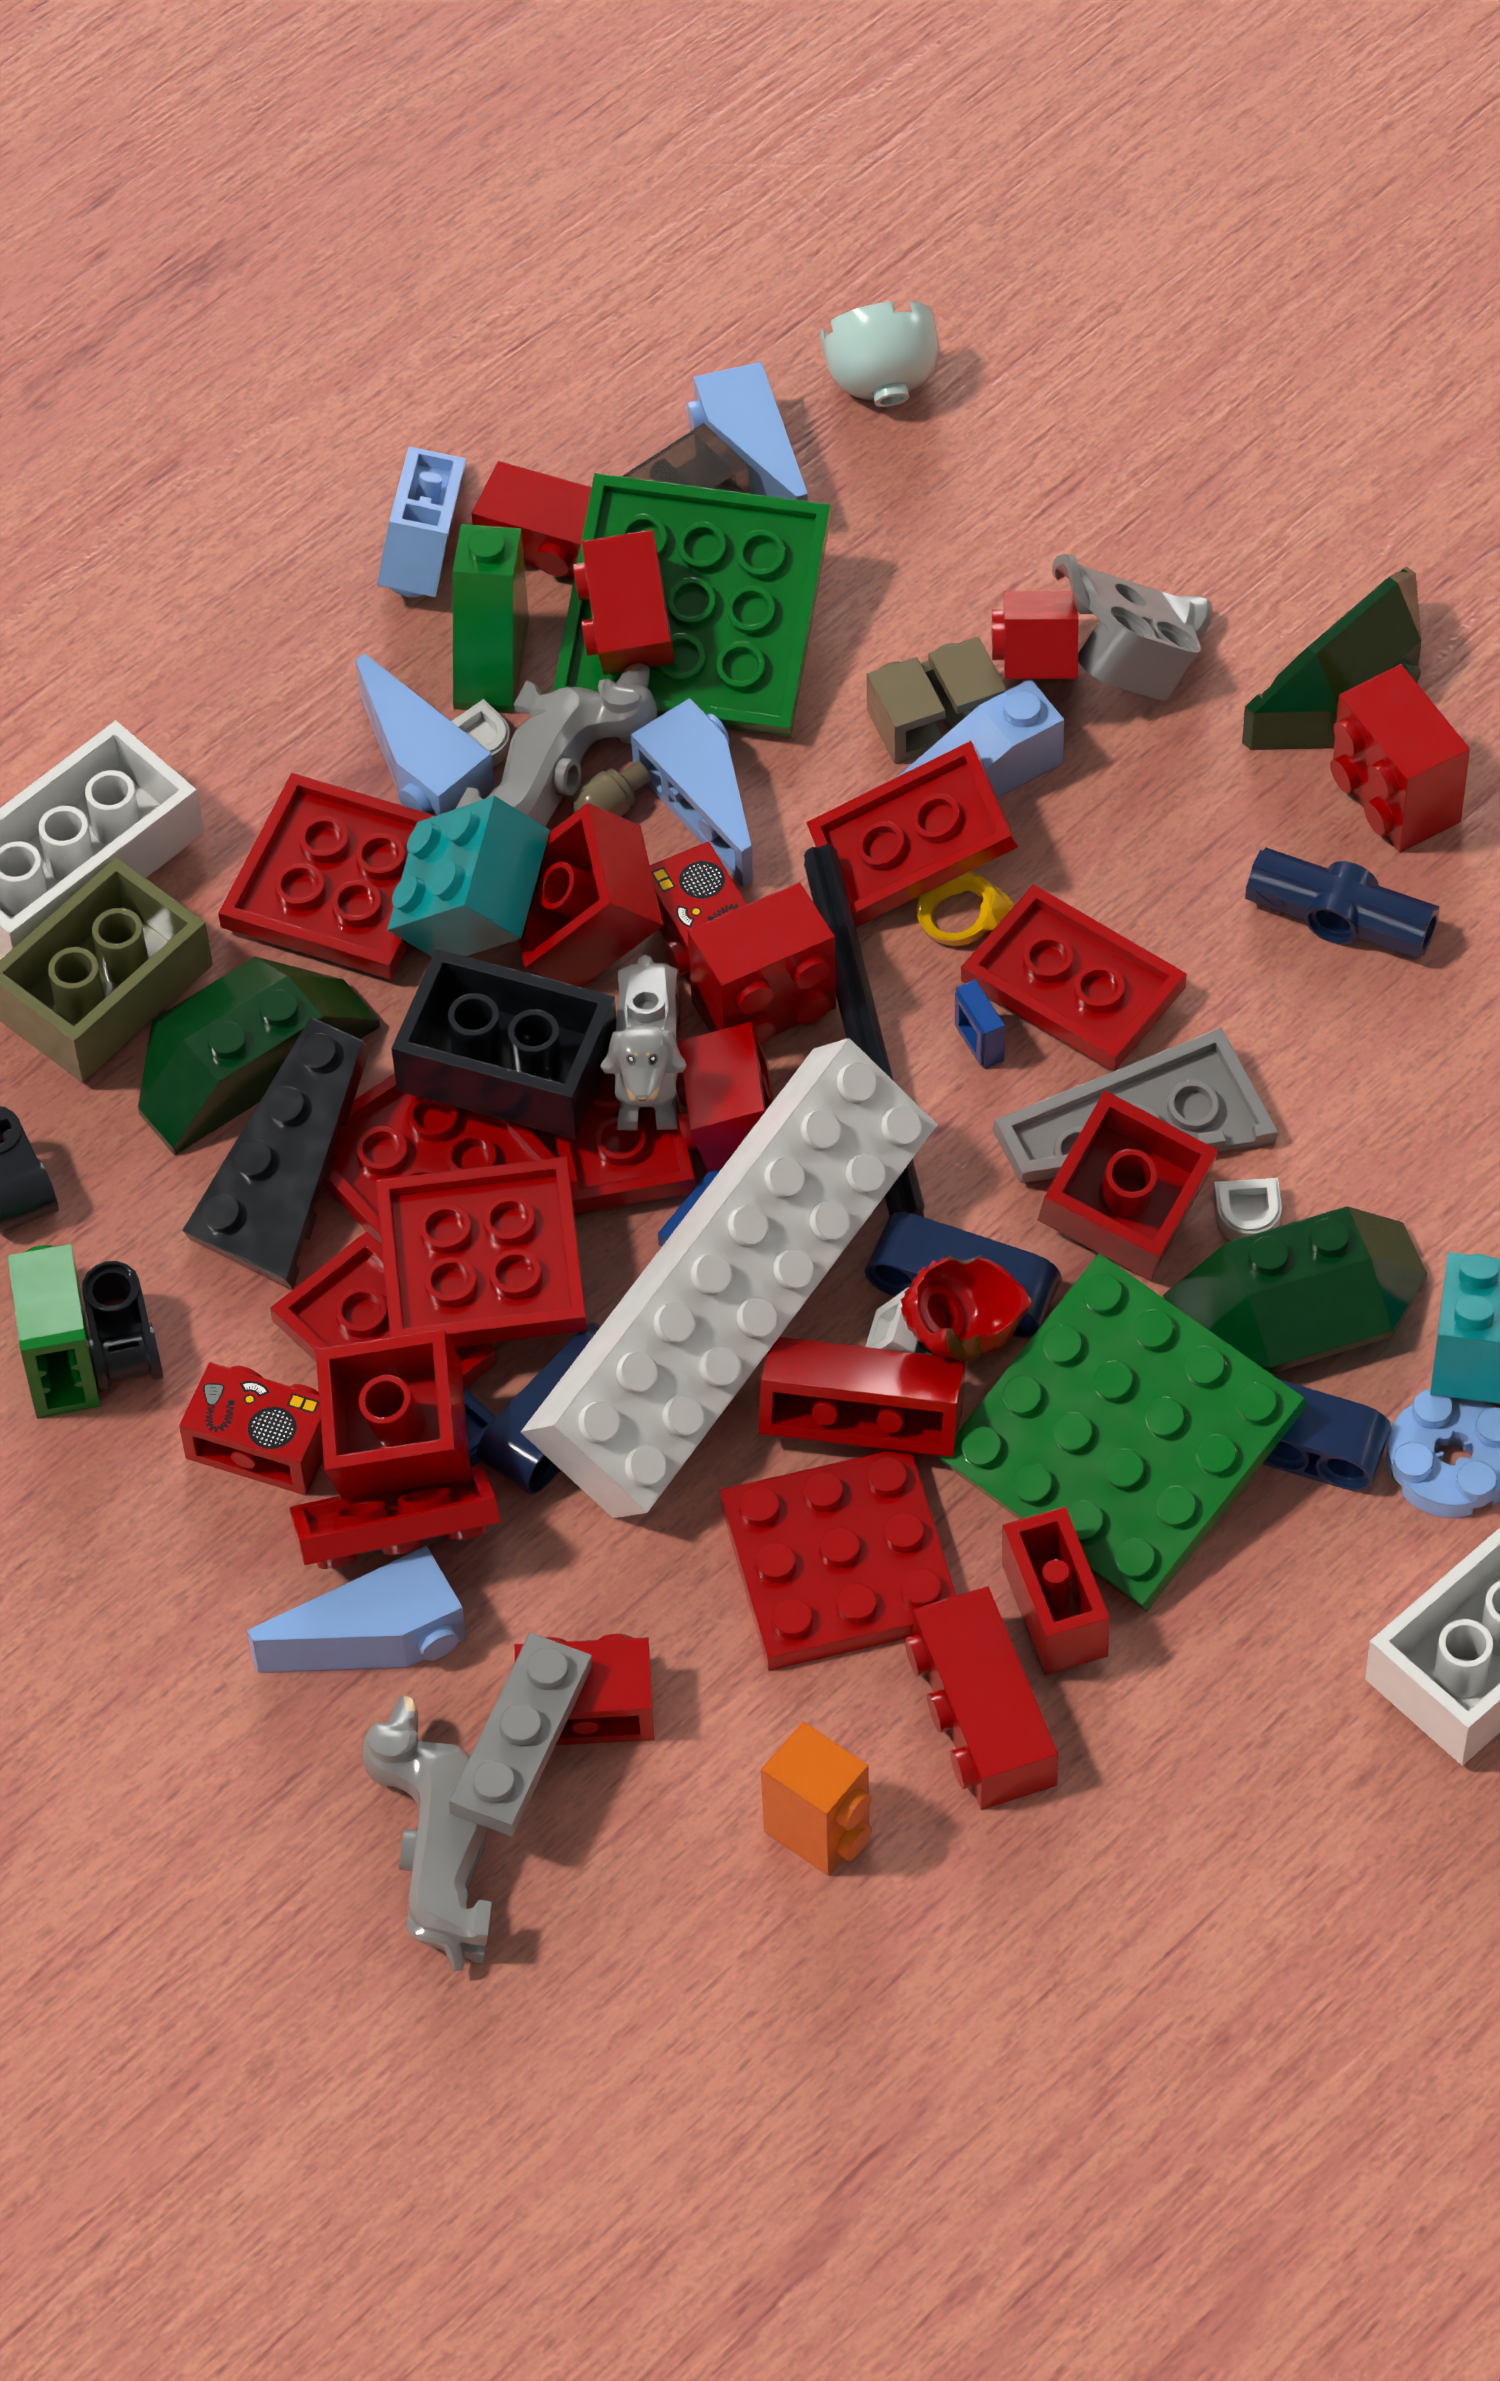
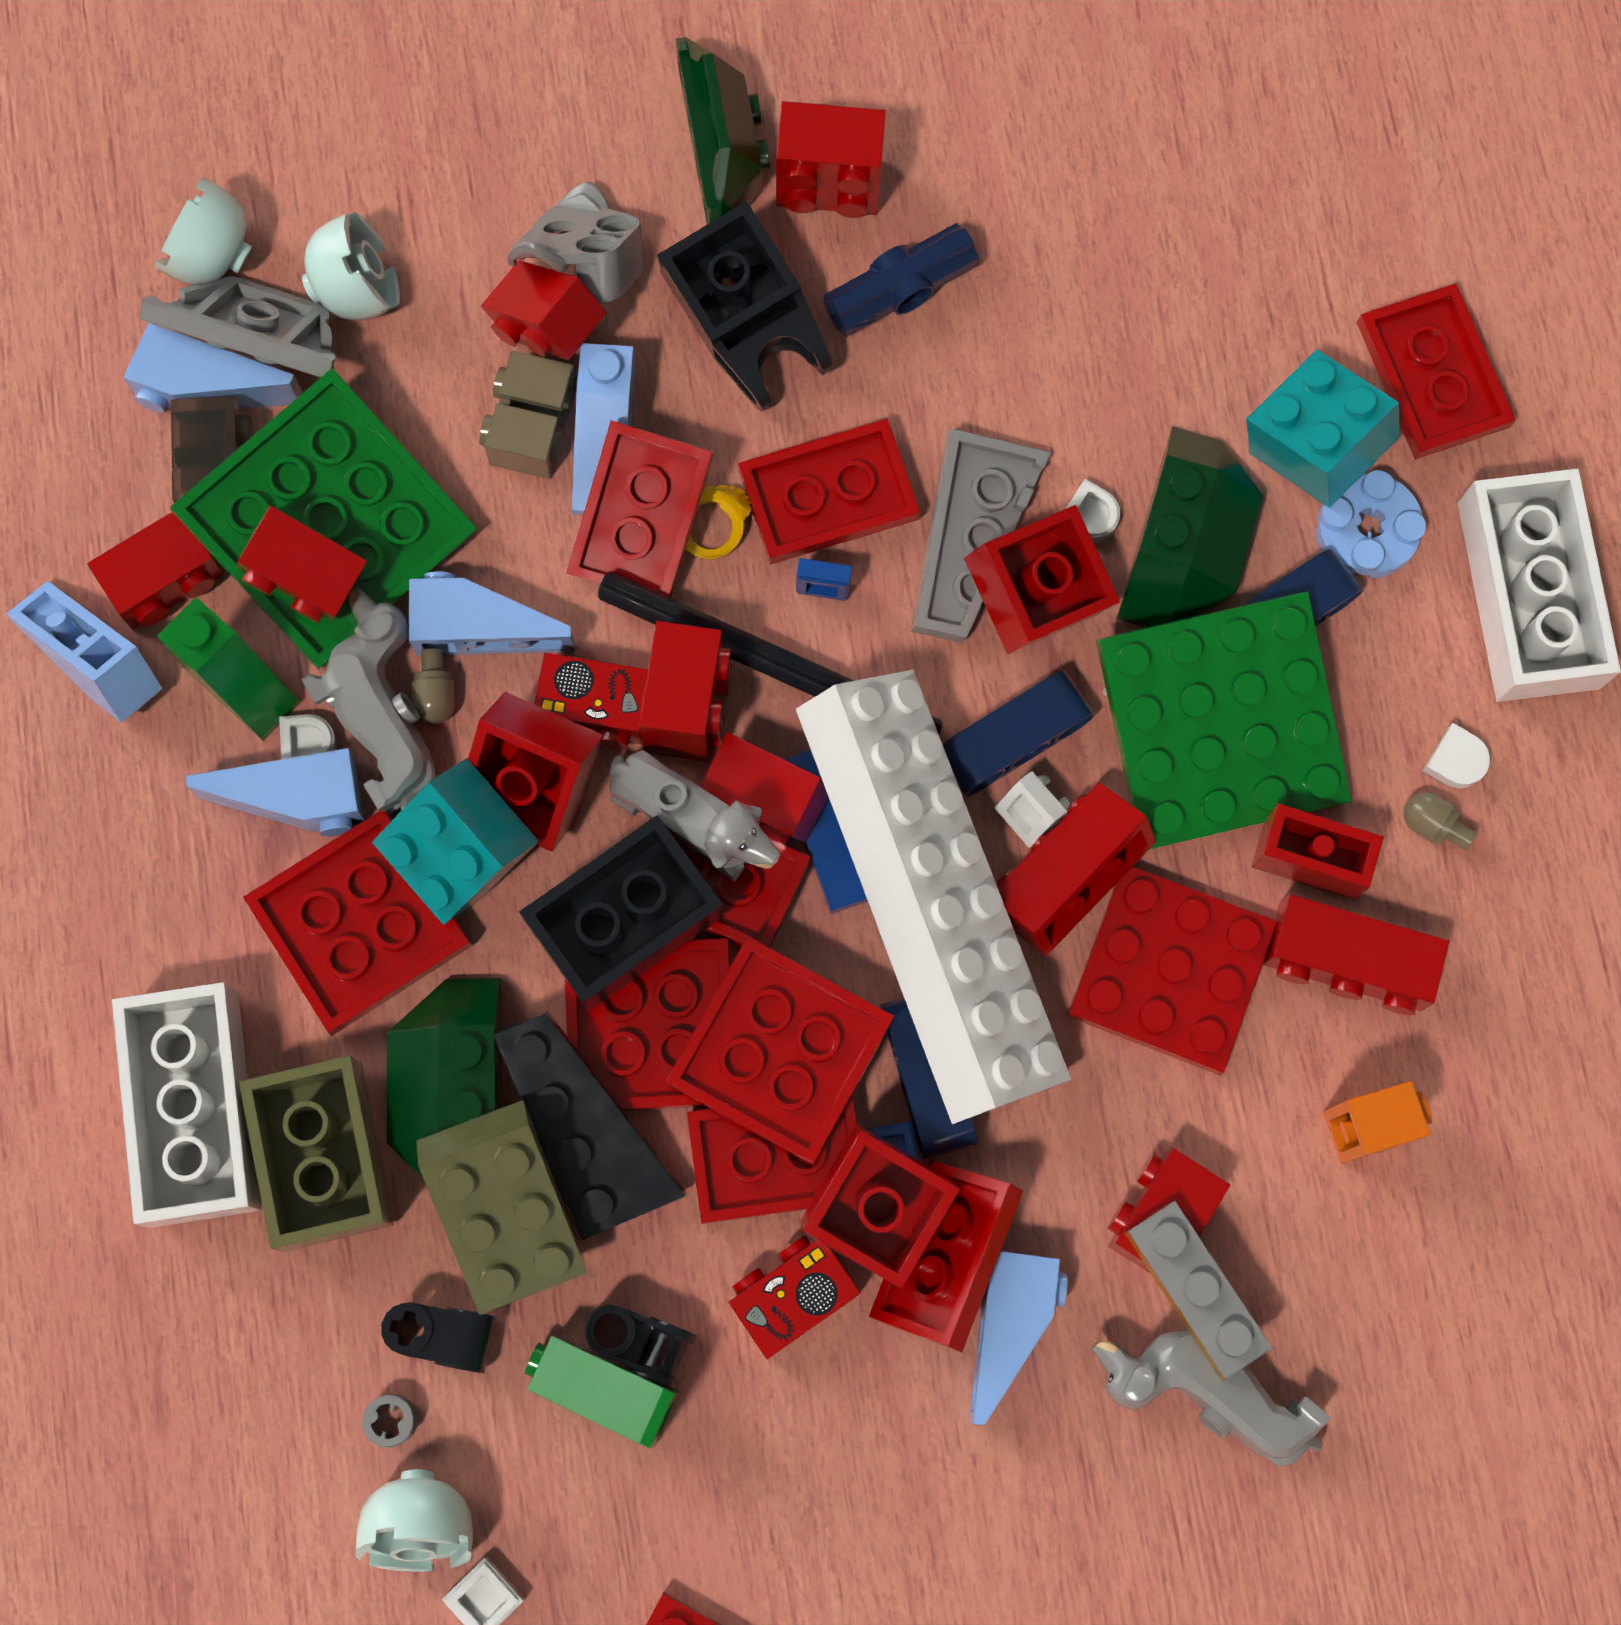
camera: 60 degrees left, 20 degrees up
(157, 1125) = (500, 1207): none -> olive brick
(832, 434) = (250, 320): none -> light grey wing
(952, 476) = (347, 271): none -> light aqua cylinder
(964, 1307) = (1073, 756): red hair -> none
(1189, 1696) = (1437, 820): none -> dark tan cylinder
(1196, 784) = (748, 319): none -> black brick
(1272, 1679) = (1458, 759): none -> white tile

